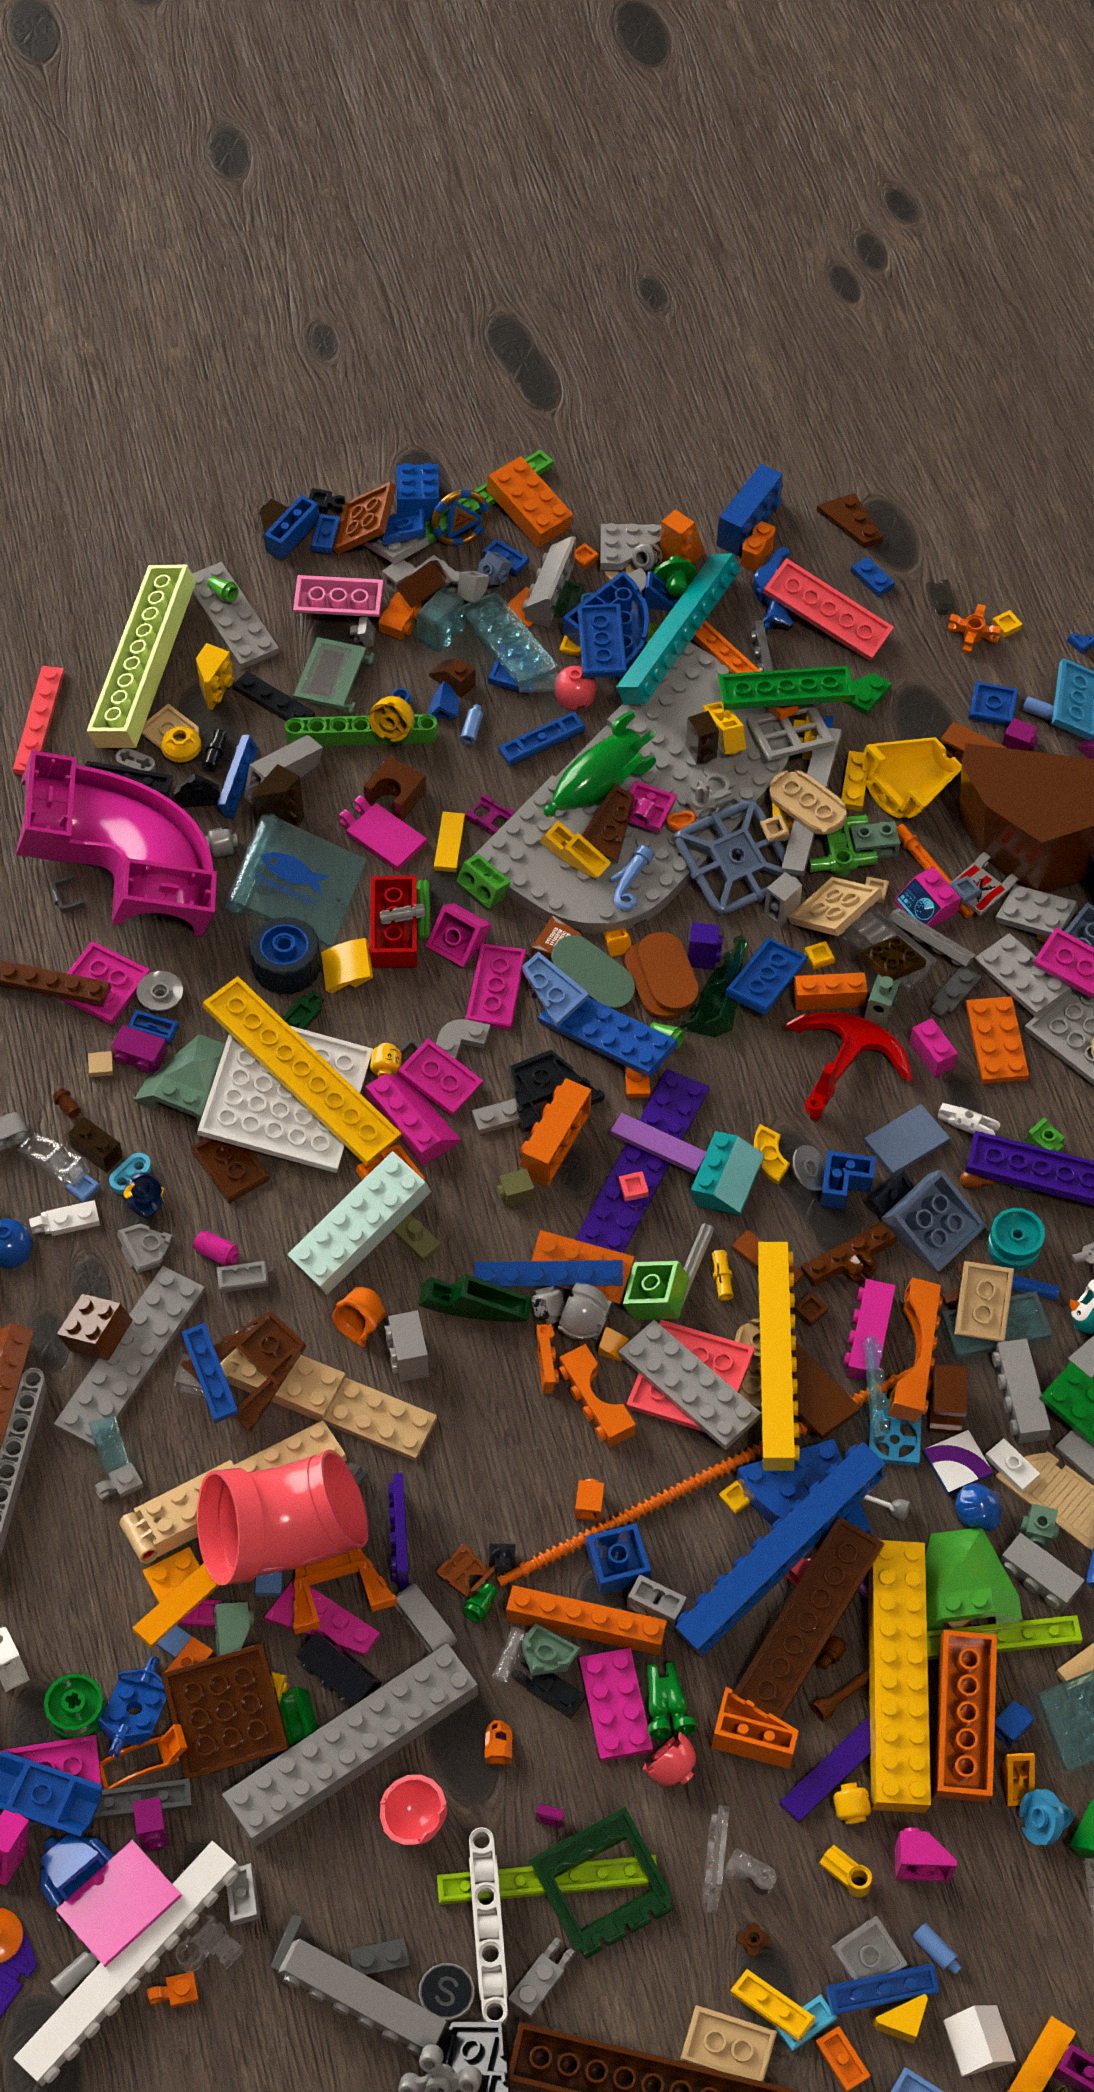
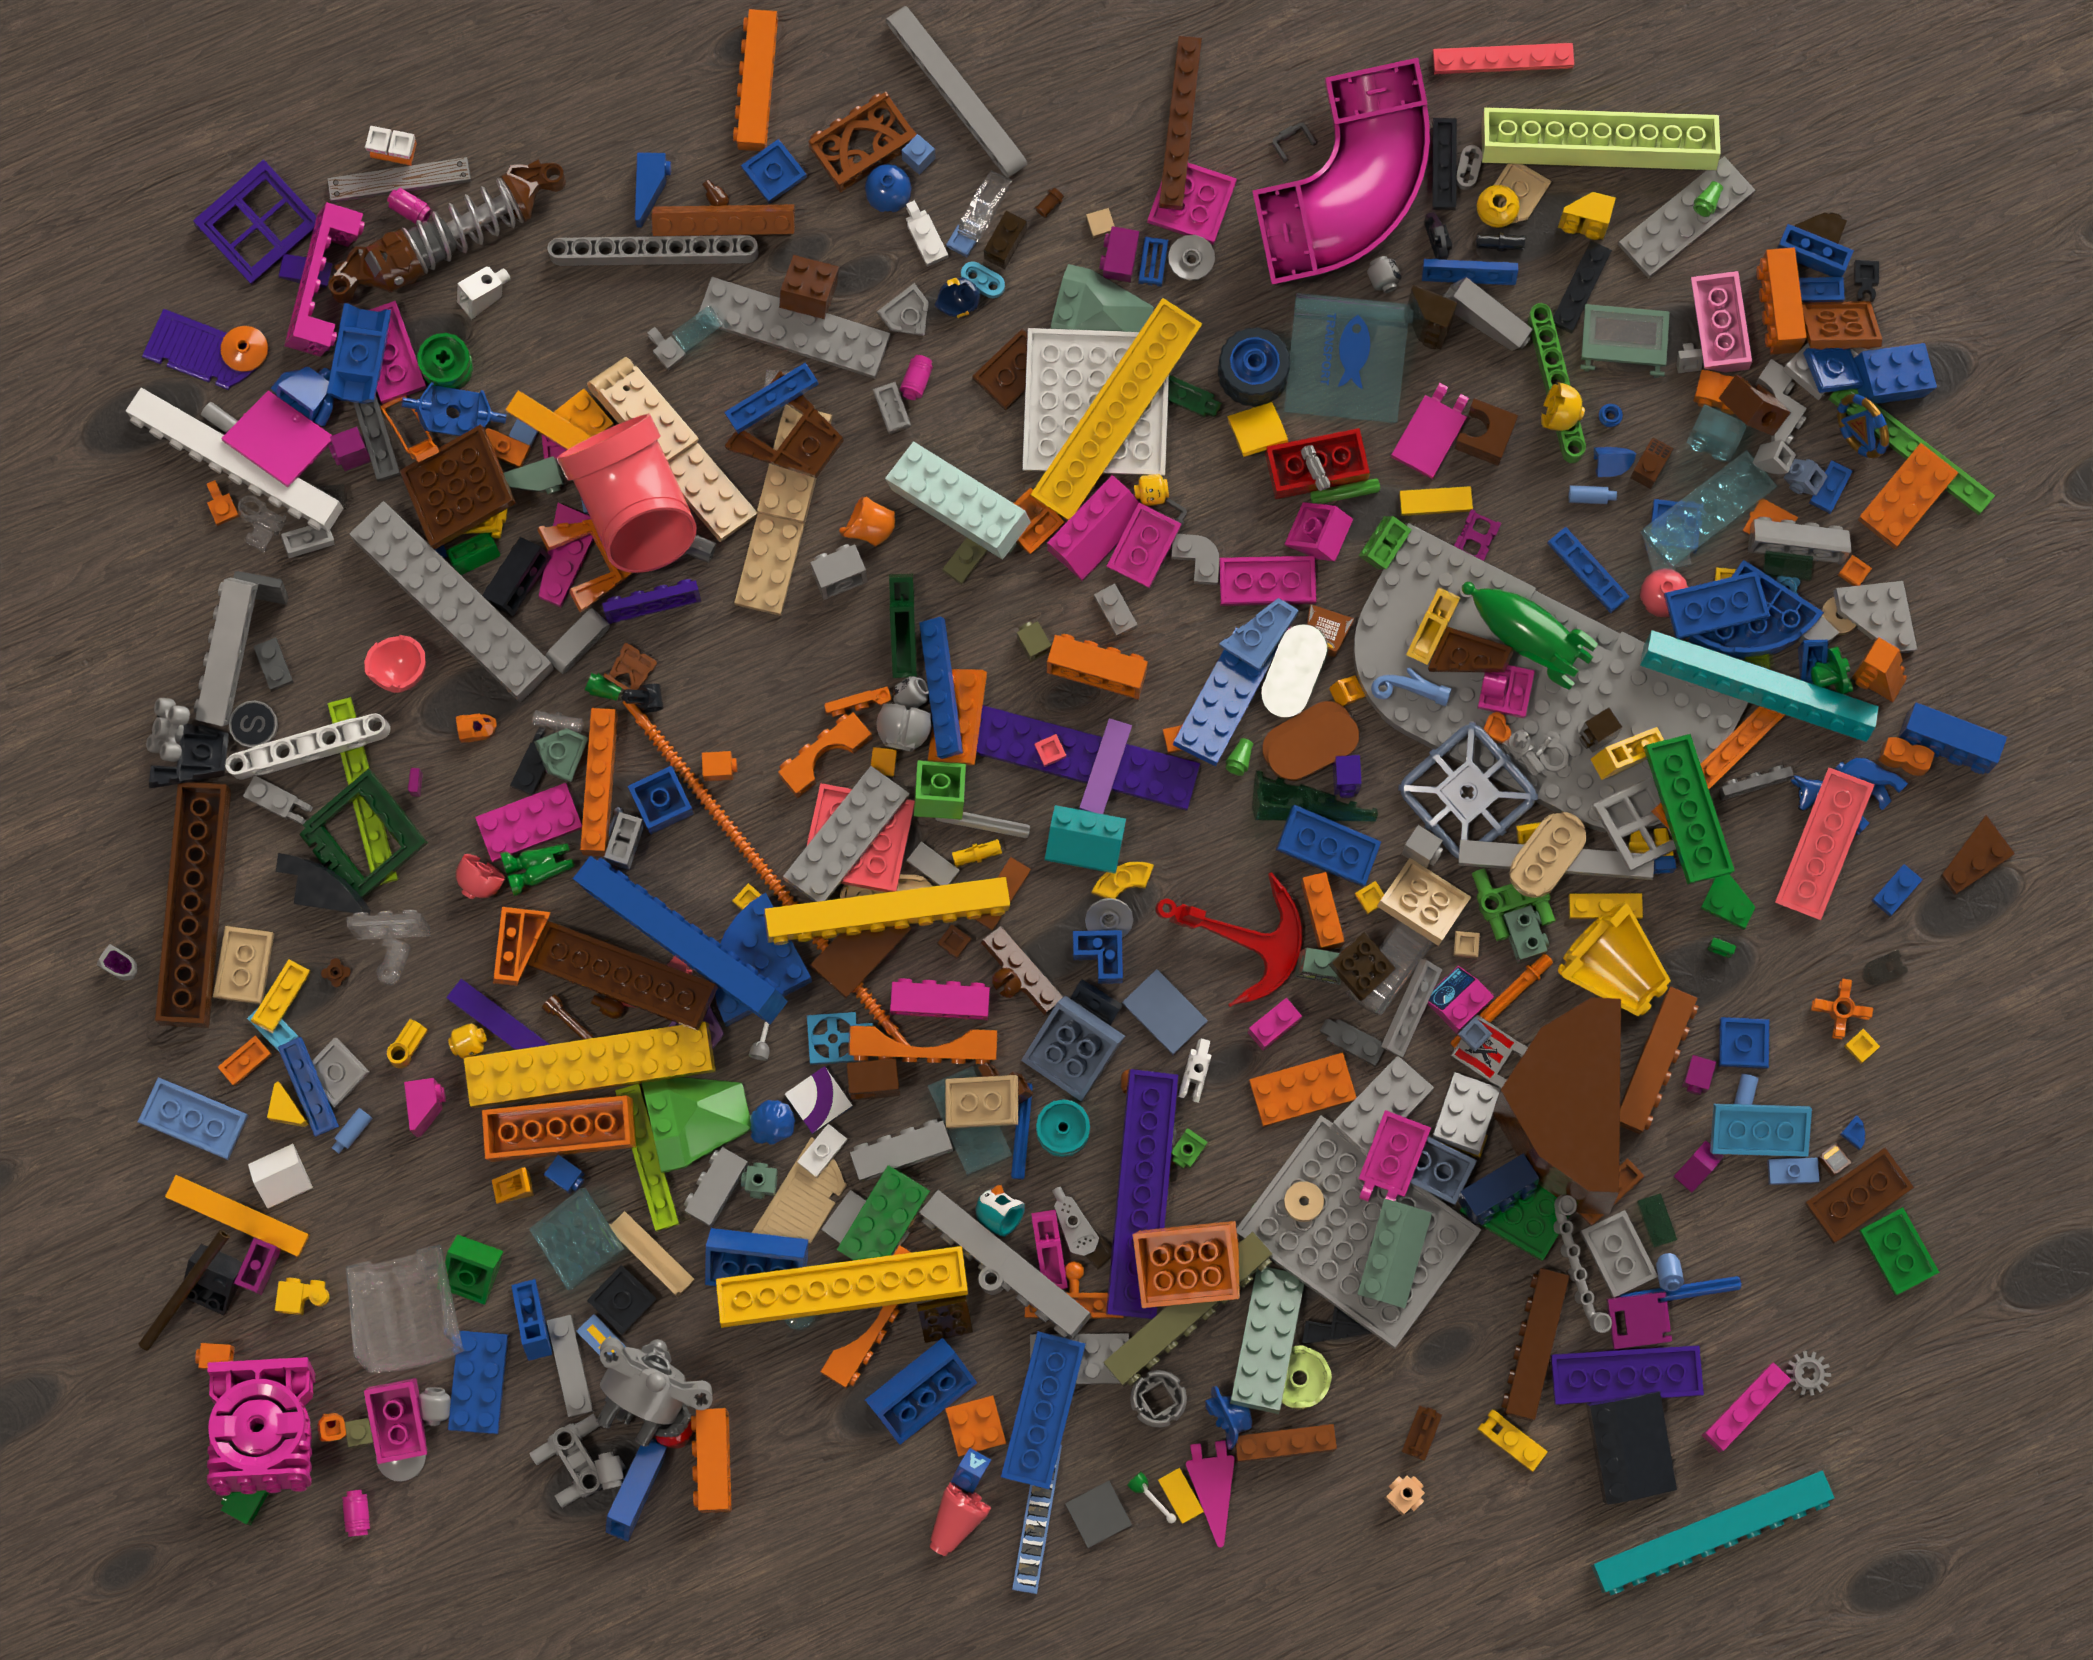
camera: 80 degrees right, 20 degrees up
(331, 553) = (1781, 301): none -> orange brick
(536, 1081) = (1162, 644): black wing -> none
(647, 556) = (1856, 636): light grey head -> none
(654, 1936) = (320, 886): none -> black slope
(729, 1316) = (932, 865): none -> light grey tile
(775, 829) = (1505, 826): tan slope -> none
(877, 1399) = (858, 1011): clear light blue plate -> none
(907, 701) = (1721, 948): none -> green tile
(1044, 1816) = (479, 1211): dark azure tile -> none

